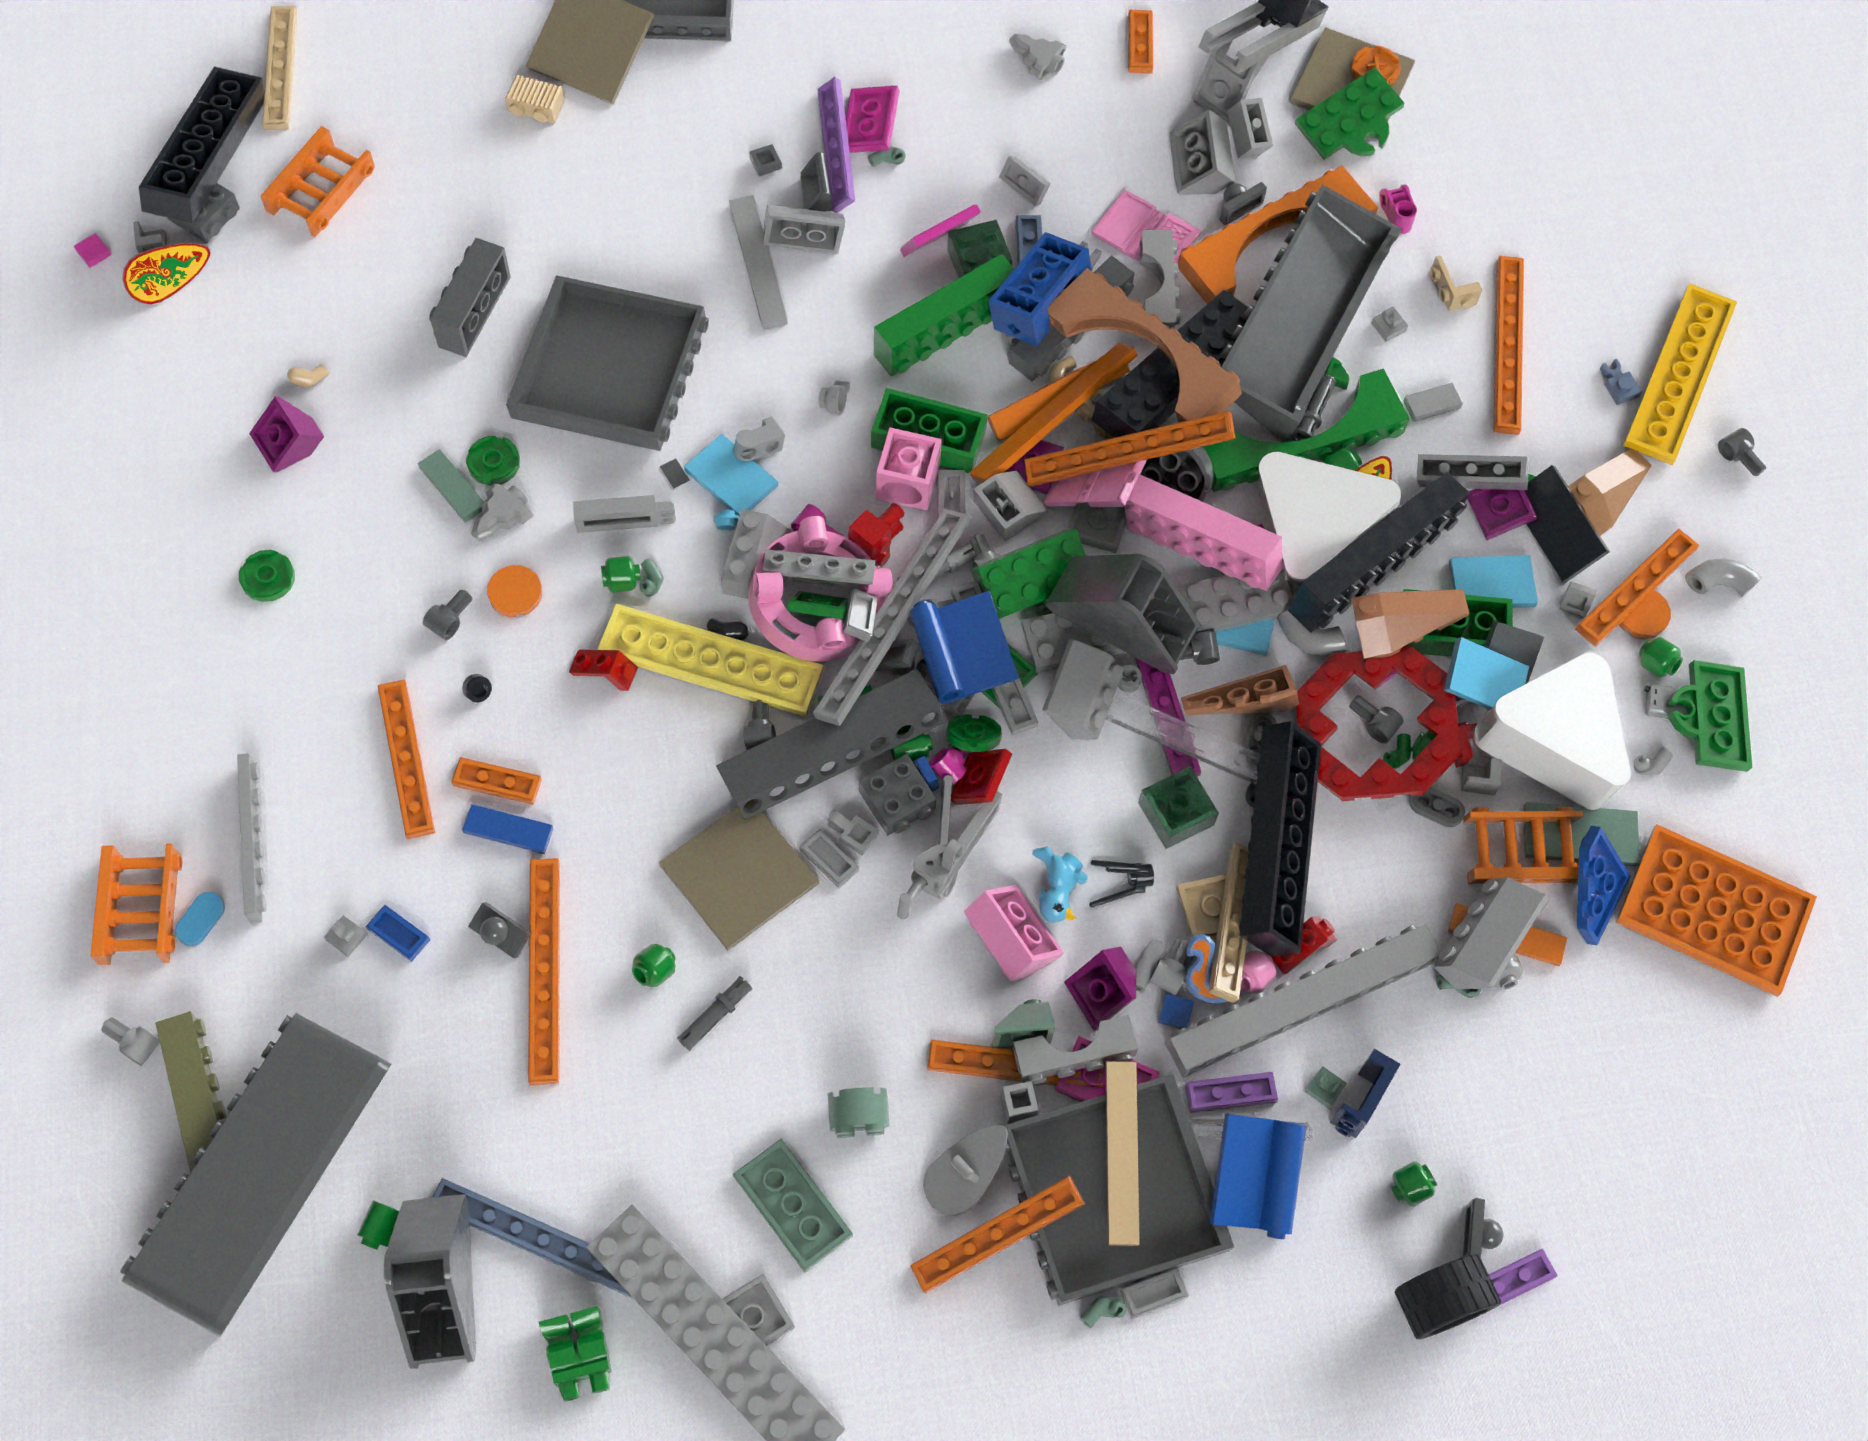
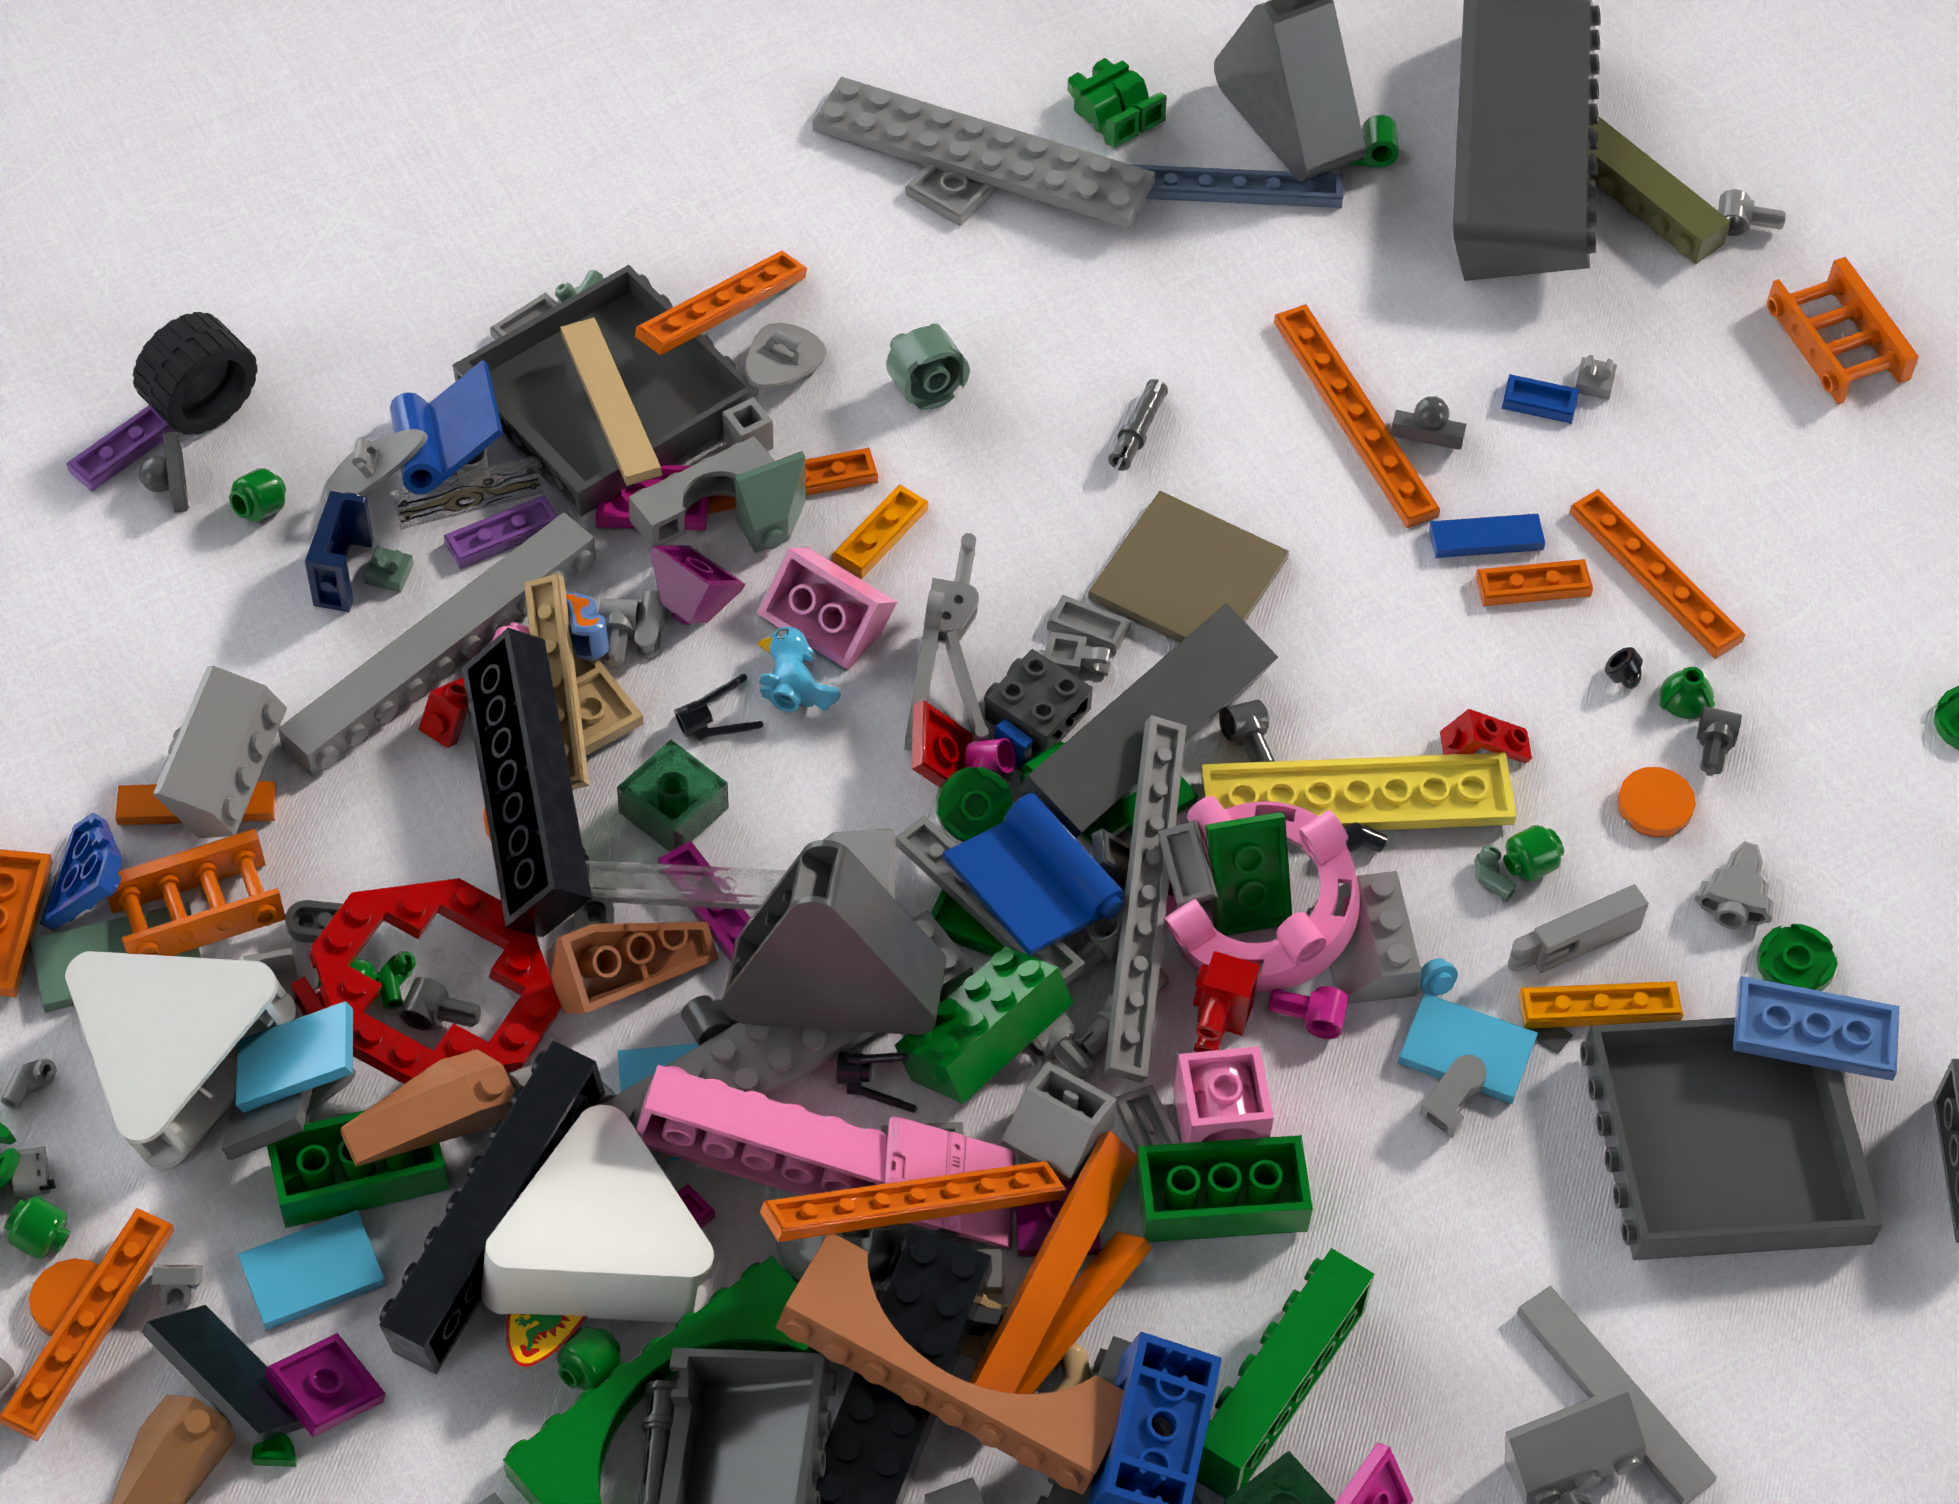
camera: 160 degrees right, 10 degrees down
(199, 919) = (1764, 345): dark azure tile -> none
(251, 847) = (1770, 429): light grey plate -> none
(446, 665) = (1685, 697): none -> green piece
(451, 485) = (1827, 907): sand green tile -> none
(519, 392) = (1816, 1028): none -> medium blue tile
(633, 474) = (1599, 1004): none -> light orange tile
(653, 965) = (1232, 443): green head -> none
(792, 1205) = (959, 287): sand green tile -> none
(819, 568) = (1271, 895): light grey bracket -> none
(834, 397) = (1383, 1205): light grey piece -> none
(947, 991) = (880, 531): none -> light orange tile
(1176, 1011) = (597, 585): blue tile -> none
(1322, 1164) = (375, 461): none -> light grey shield
(1475, 470) = (381, 1391): light grey brick -> none

